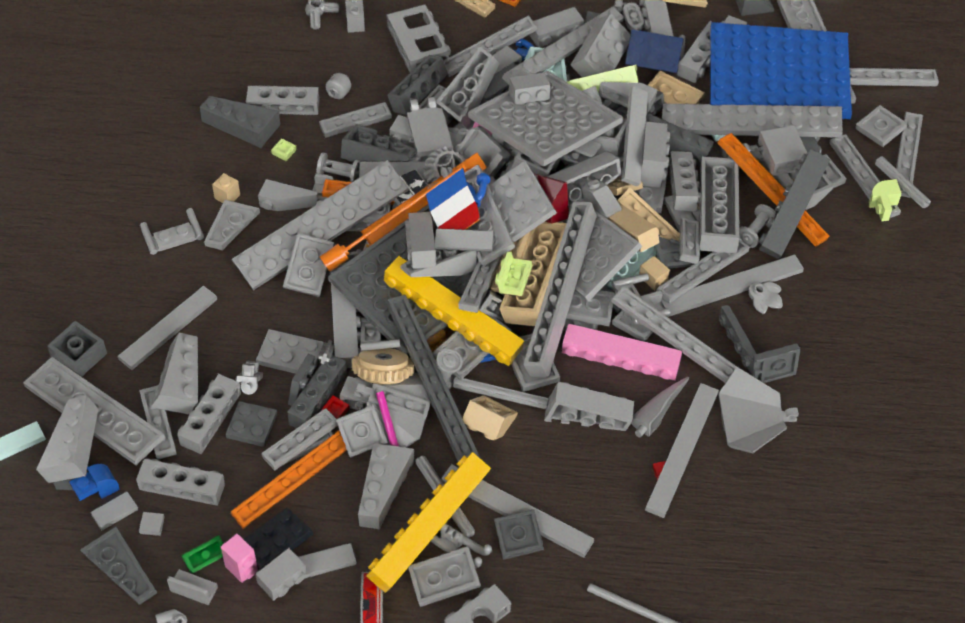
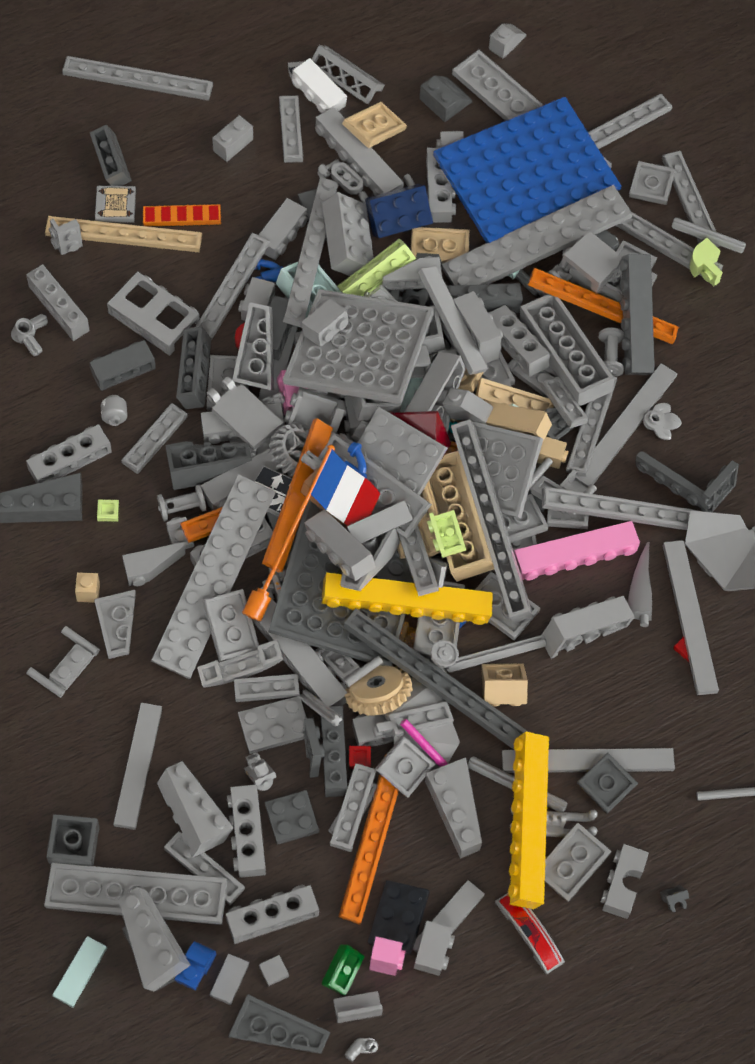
camera: 35 degrees left, 10 degrees up
(294, 300) = (241, 666): none -> light grey slope
(303, 323) = (266, 688): none -> light grey plate
(368, 61) = (122, 365): none -> dark grey brick

